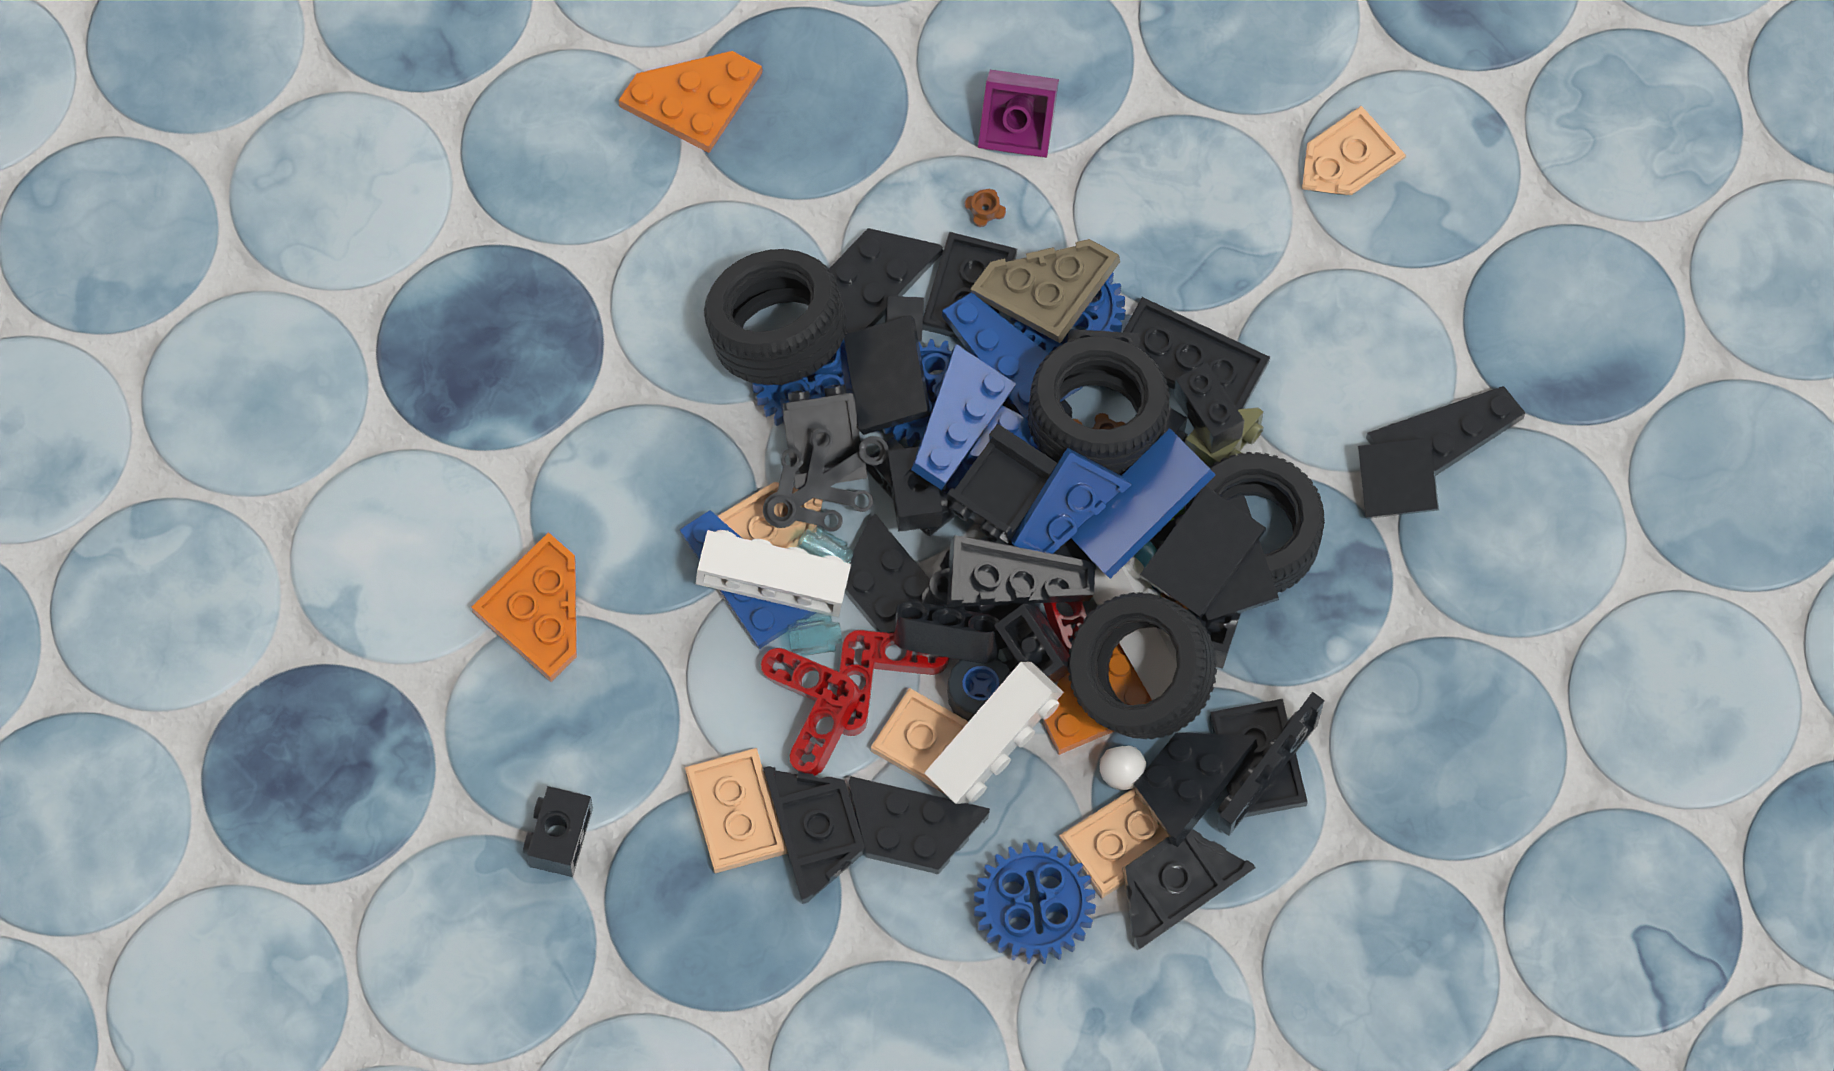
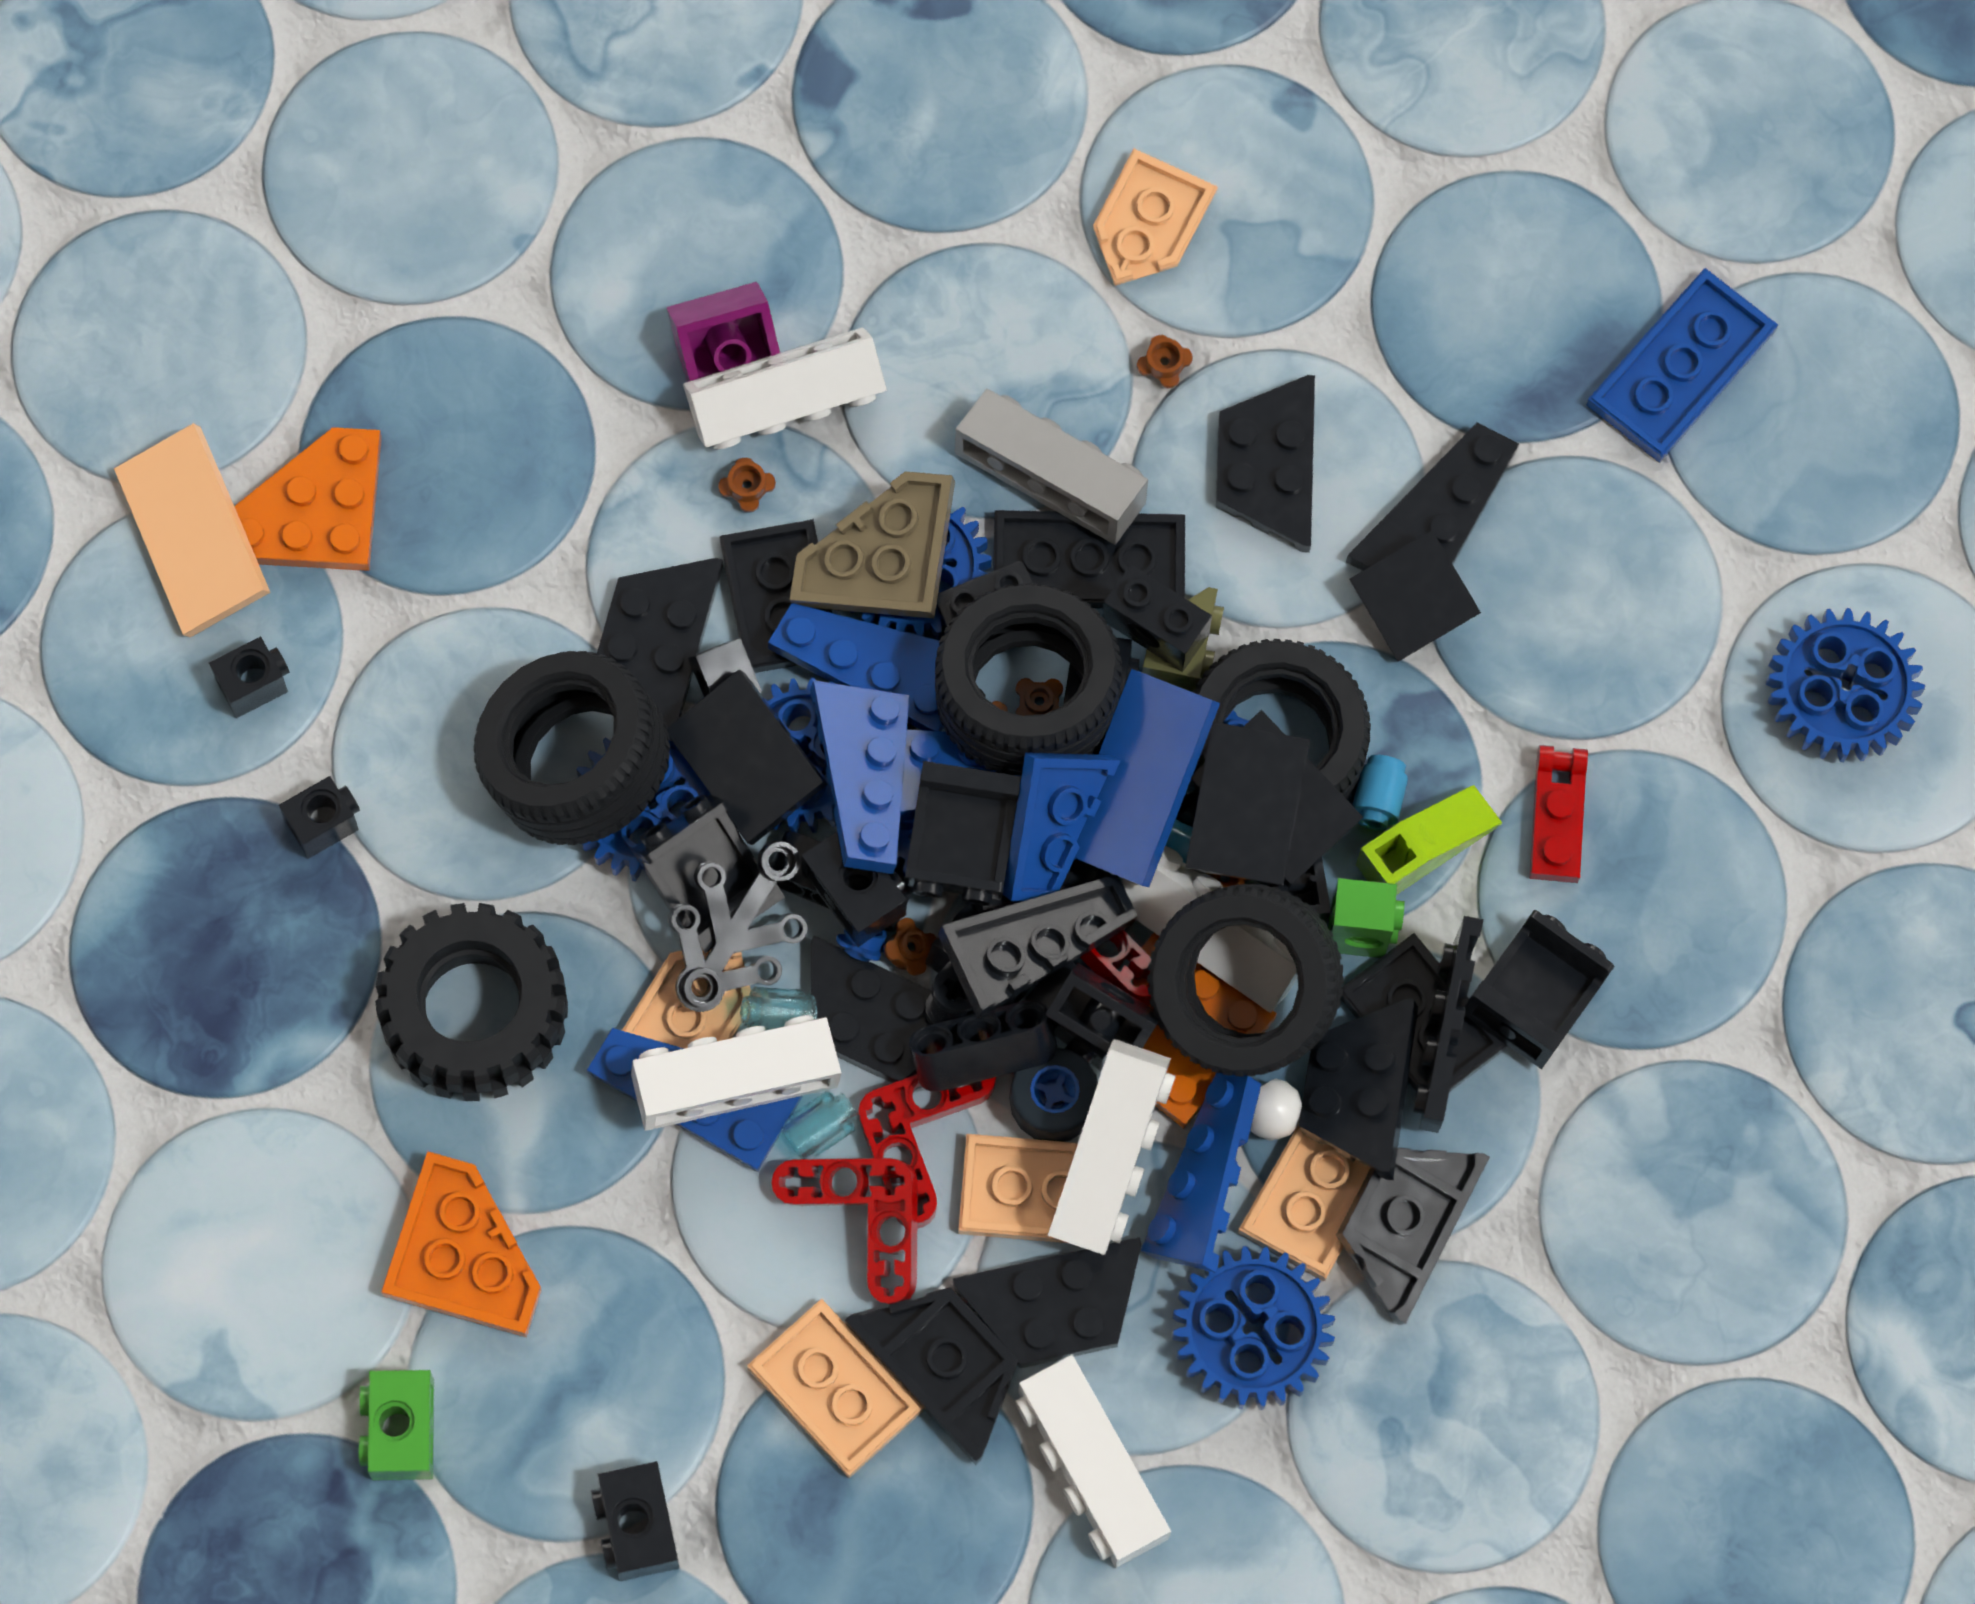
camera: 30 degrees left, 5 degrees up
(438, 718) = (413, 1452): none -> bright green brick
(587, 170) = (248, 696): none -> black brick
(589, 277) = (315, 836): none -> black brick
(606, 74) = (192, 530): none -> light nougat tile
(619, 408) = (459, 941): none -> black tyre
(880, 938) = (1092, 1461): none -> white brick
(906, 538) = (866, 952): none -> blue plate
(925, 547) = (897, 947): none -> dark orange plate
(1041, 155) = (785, 388): none -> white brick
(1058, 782) = (1197, 1190): none -> blue wing
(1194, 283) = (1051, 465): none -> light grey brick
(1249, 669) = (1365, 917): none -> bright green brick
(1307, 595) = (1380, 792): none -> dark azure brick
(1316, 245) = (1167, 348): none -> dark orange plate
(1320, 641) = (1427, 839): none -> lime slope
(1347, 348) = (1269, 461): none -> black wing
(1347, 773) = (1538, 988): none -> black panel
(1423, 669) = (1558, 816): none -> red plate
(1669, 412) = (1682, 365): none -> blue tile
(1693, 651) = (1834, 724): none -> blue gear

